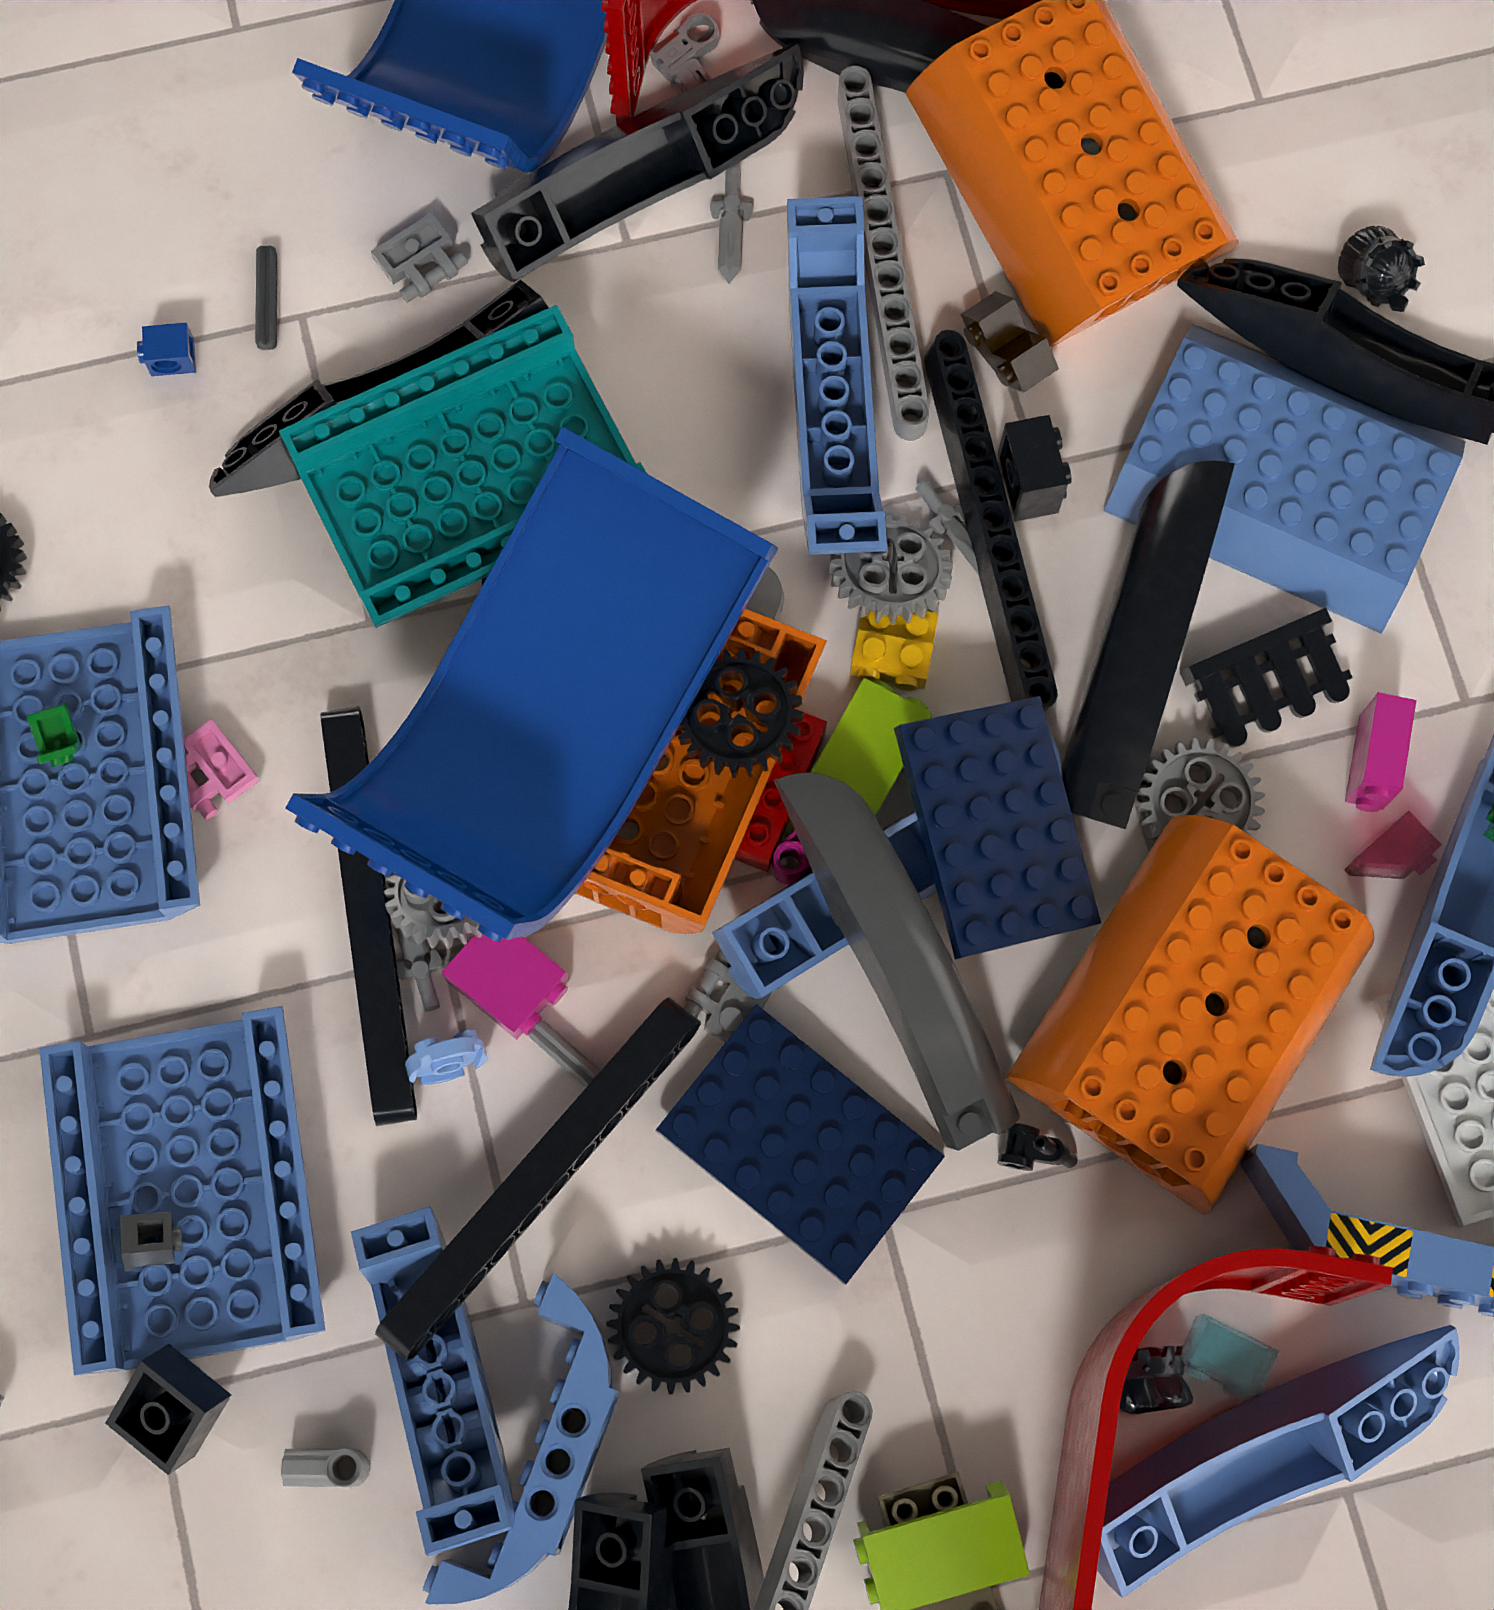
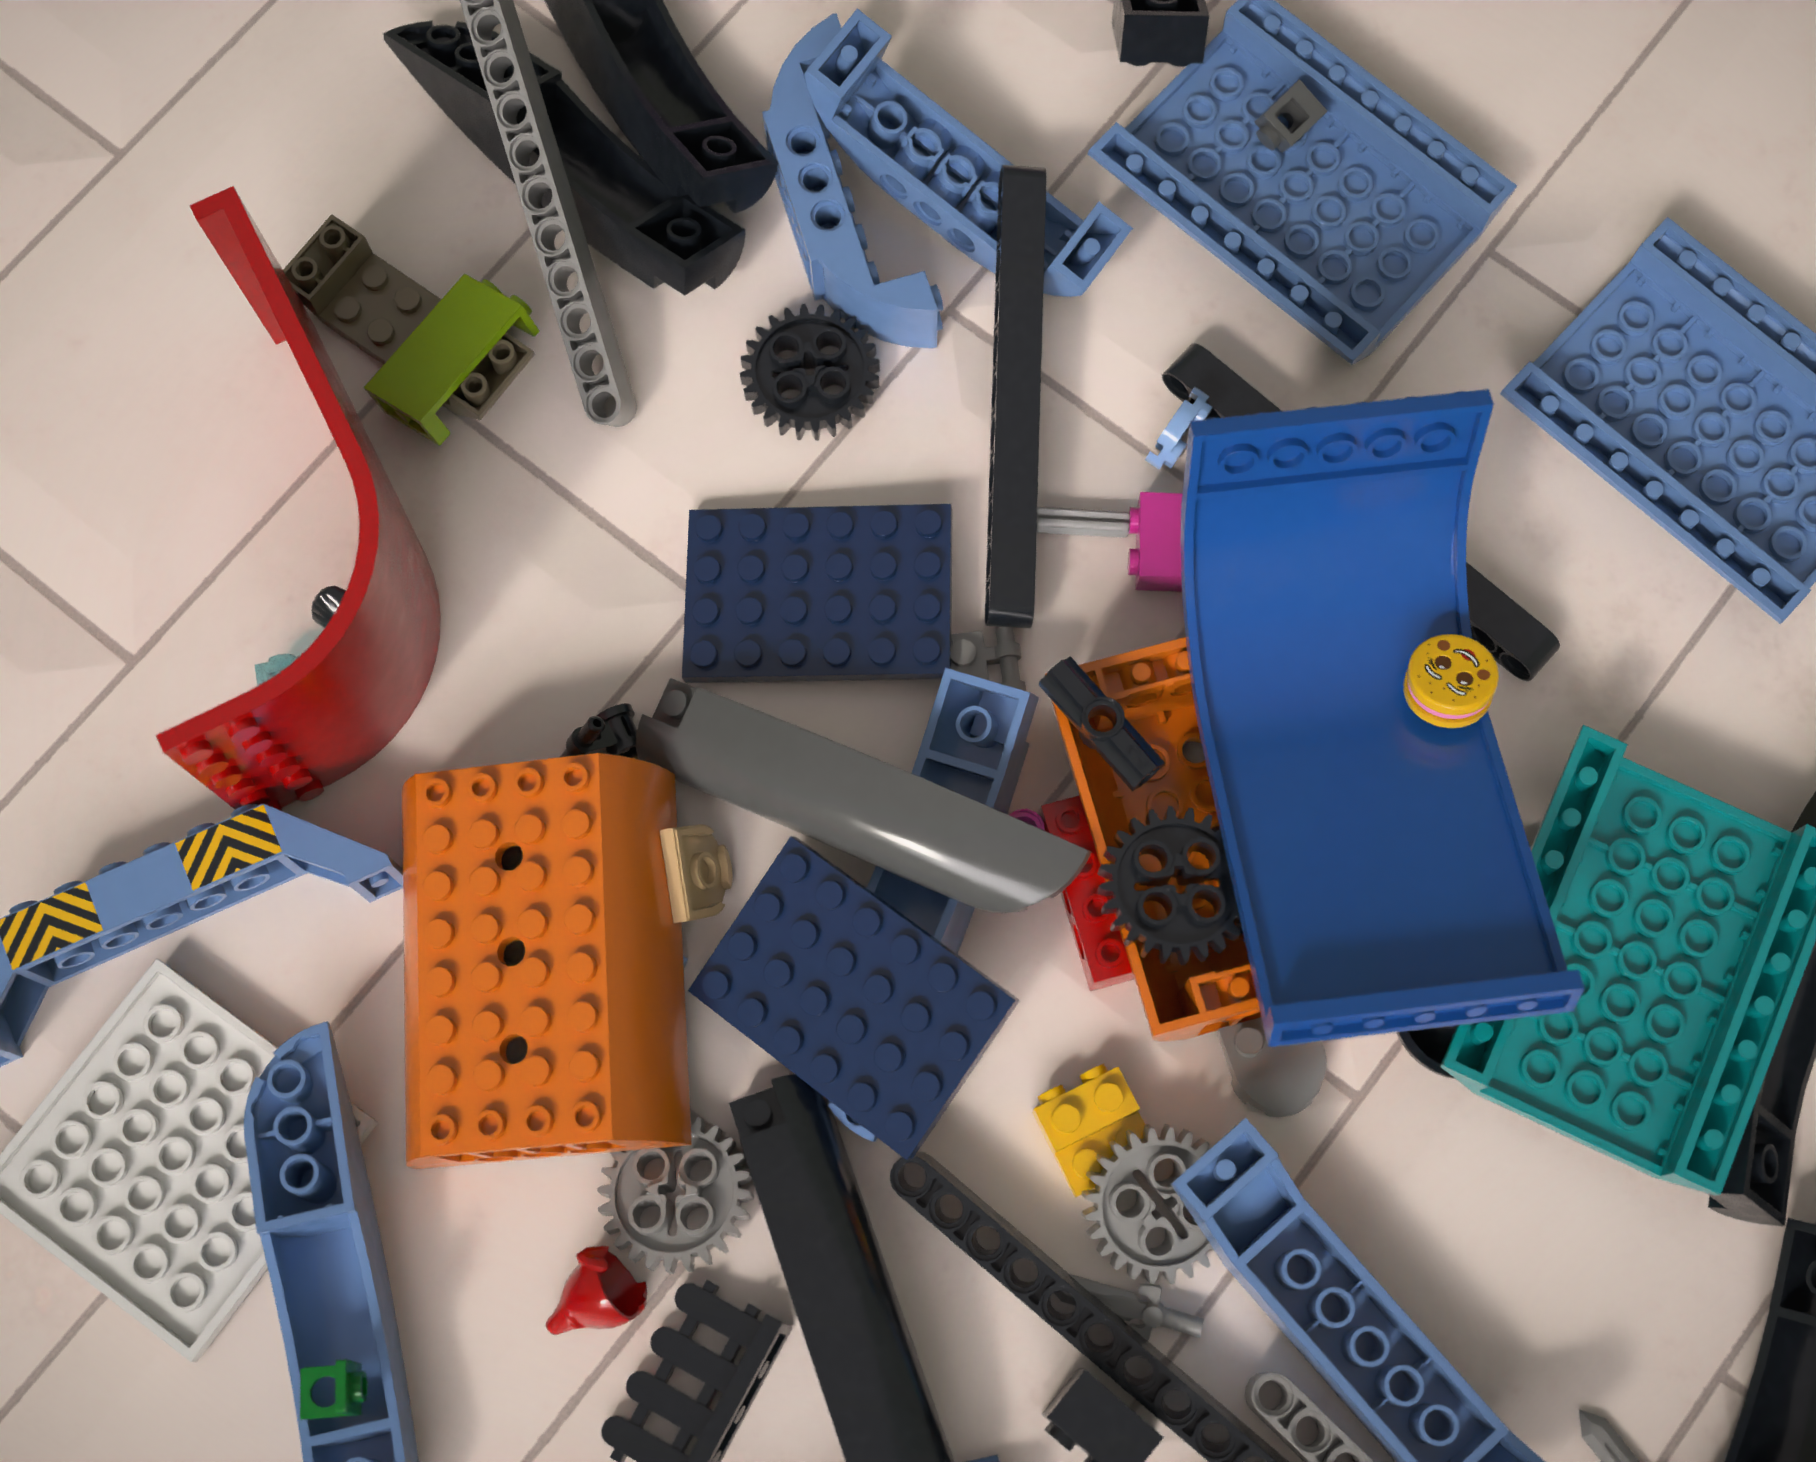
camera: 145 degrees right, 0 degrees up
(54, 735) = (1762, 440): green bracket -> none
(222, 766) = (1604, 538): bright pink plate -> none
(321, 1467) = (1002, 78): light grey piece -> none
(446, 700) = (1450, 681): none -> yellow head
(701, 877) = (1121, 746): none -> black piece
(864, 743) = (1037, 962): lime panel -> none
(1040, 997) = (695, 872): none -> tan tile
(1272, 1451) = (217, 626): medium blue slope -> none
(1295, 772) = (598, 1294): none -> red hat
(1380, 752) = (523, 1378): dark pink brick -> none
(1397, 851) = (444, 1290): clear pink slope -> none

